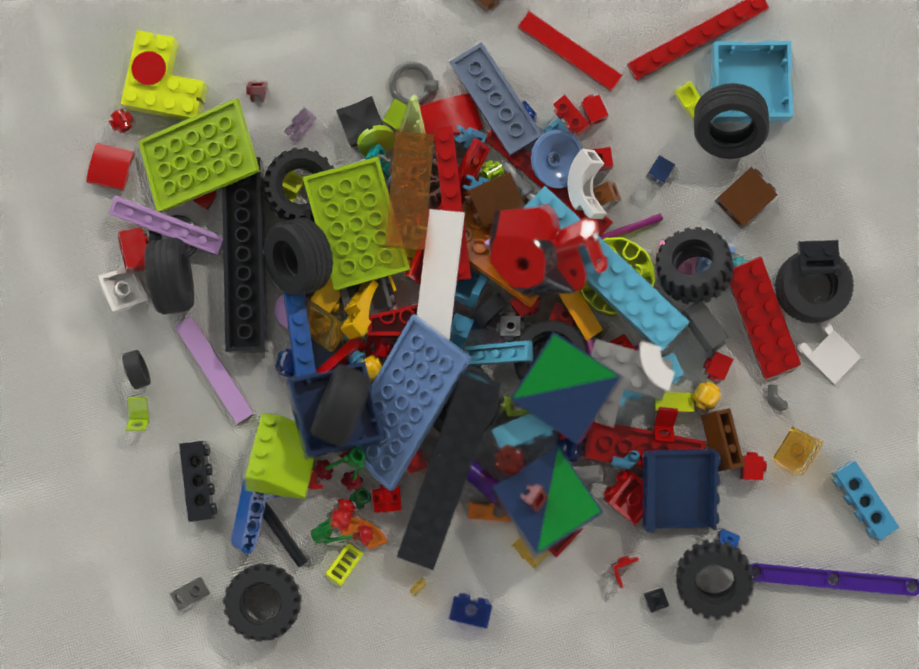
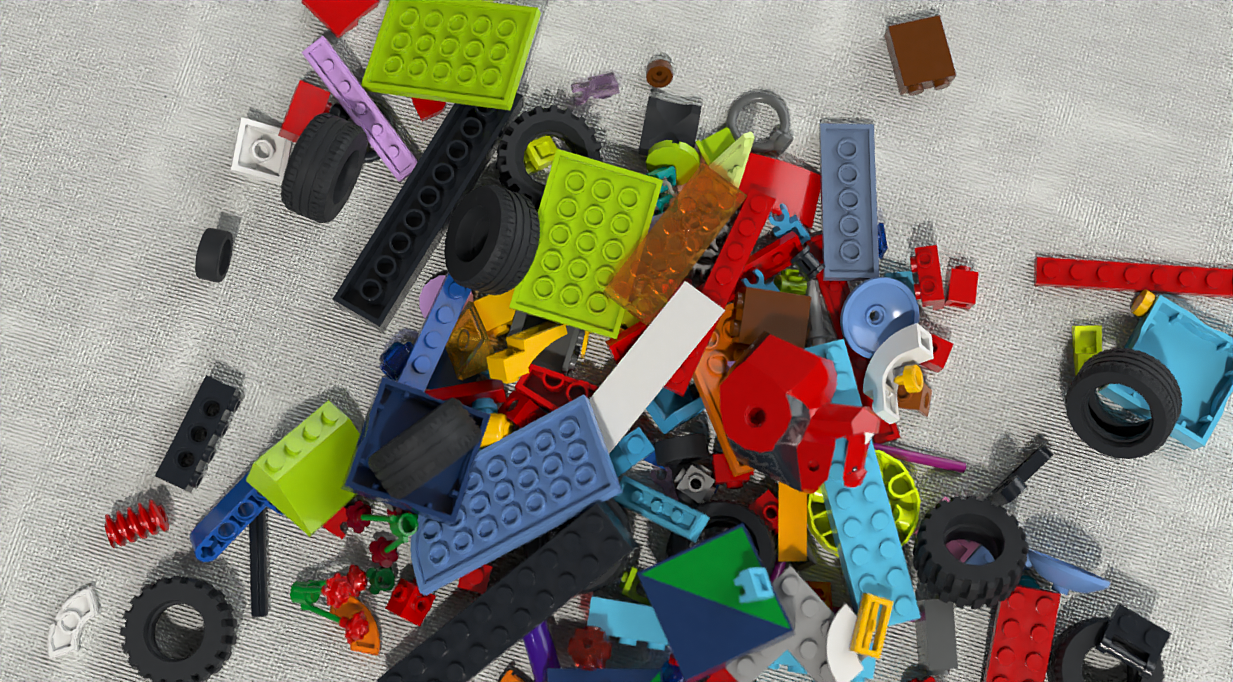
camera: 25 degrees right, 5 degrees down
(138, 413) = (182, 309): lime bracket -> none
(190, 593) = (101, 564): dark grey bracket -> none
(193, 637) = (70, 621): none -> white tile
(195, 556) = (136, 524): none -> red piece
(214, 370) = (306, 315): lavender tile -> none
(257, 88) = (571, 16): dark red tile -> none
(333, 91) = (659, 73): none -> reddish brown tile
(339, 582) = (293, 644): neon yellow slope -> none
(494, 152) = (807, 263): none -> black bush
(570, 51) = (974, 201): red tile -> none
(583, 363) = (755, 584): none -> medium azure tile
(598, 183) = (911, 379): none -> yellow tile
(660, 171) = (997, 411): dark blue bracket -> none
(660, 344) = (861, 636): none -> yellow tile
(696, 208) = (1015, 483): none -> black beam
(707, 52) = (1143, 303): none -> yellow tile
(746, 197) = (1085, 509): reddish brown panel -> none
(757, 243) = (1065, 575): none -> medium blue dish

